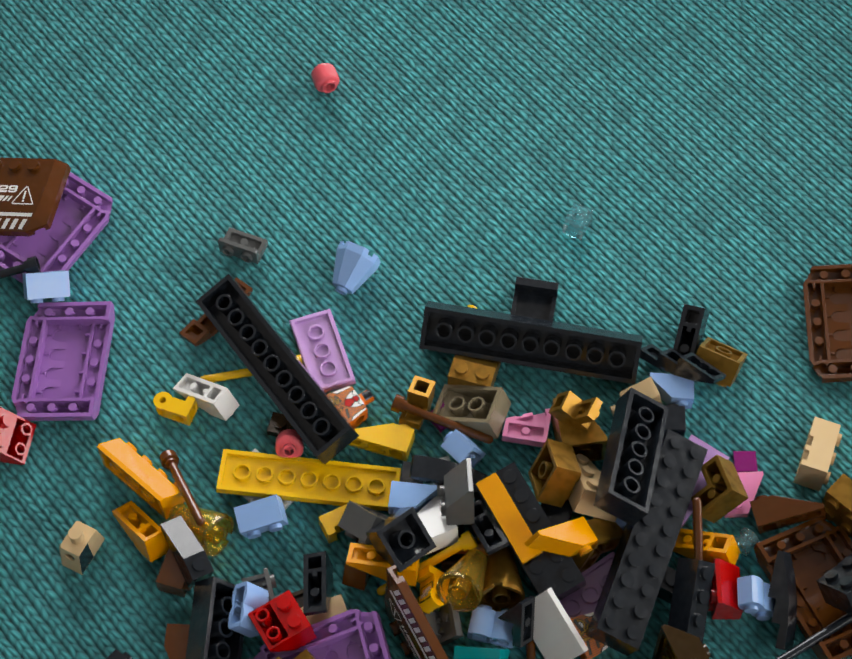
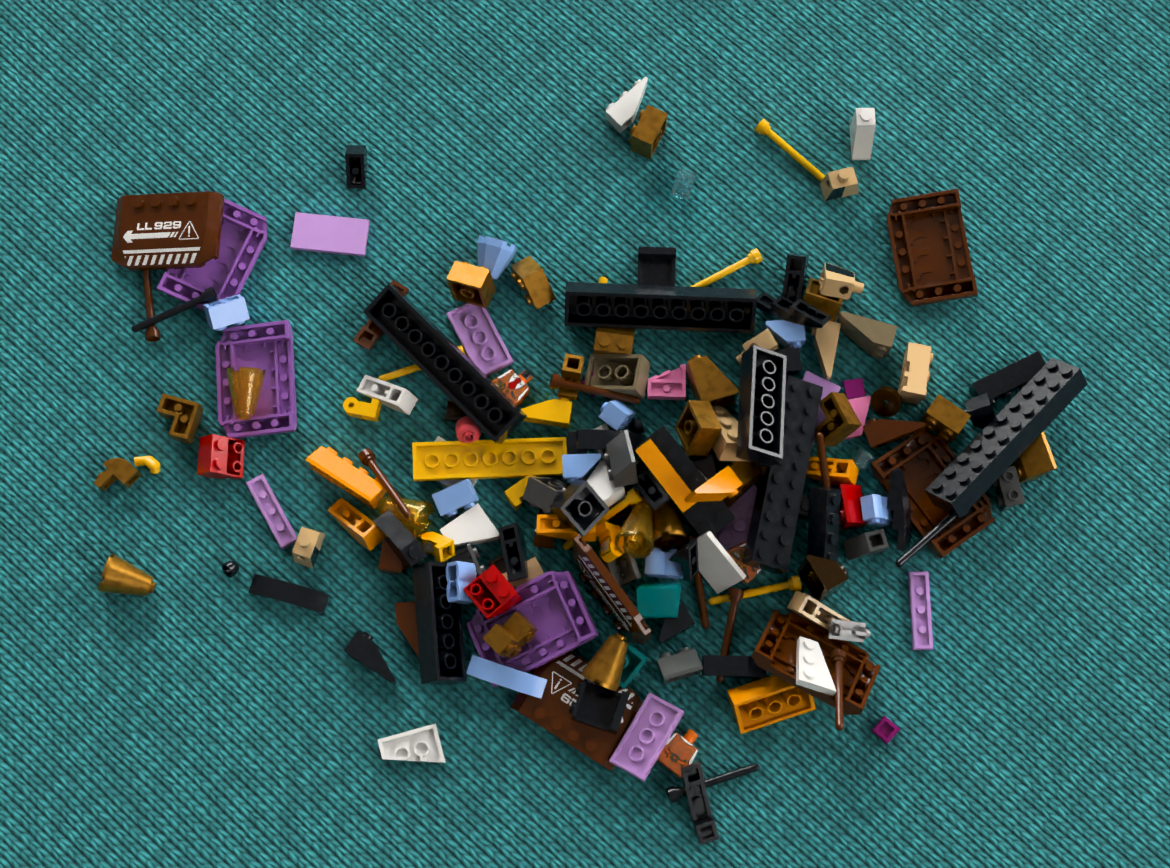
camera: 10 degrees left, 15 degrees up
(47, 365) = (245, 390): none -> clear yellow cone
(48, 504) = (272, 511): none -> lavender tile
(48, 597) = (289, 593): none -> black slope
(178, 225) = (330, 234): none -> lavender tile
(220, 160) = (356, 166): none -> black slope
(227, 563) = (436, 545): none -> yellow leg
(243, 245) = (392, 247): dark grey bracket -> none
(271, 551) = (471, 528): none -> white slope
(321, 290) = (471, 284): none -> pearl gold brick
(325, 77) = (436, 70): coral head -> none
(392, 295) = (534, 281): none -> pearl gold brick
(485, 467) = (636, 426): none -> black hinge
(524, 140) = (623, 112): none -> white slope
(545, 162) = (648, 131): none -> pearl gold brick
(574, 411) = (709, 372): pearl gold brick -> none
(646, 307) = (753, 257): none -> yellow piece
(675, 177) = (764, 128): none -> yellow piece
(716, 408) = (825, 345): none -> tan slope
(732, 342) = (838, 282): none -> tan torso
(739, 637) = (866, 544): none -> dark grey slope
(753, 242) = (841, 183): none -> tan torso
(766, 400) = (869, 334): none -> dark tan slope
(784, 193) = (862, 133): none -> white slope
(790, 478) = (891, 396): none -> dark brown piece

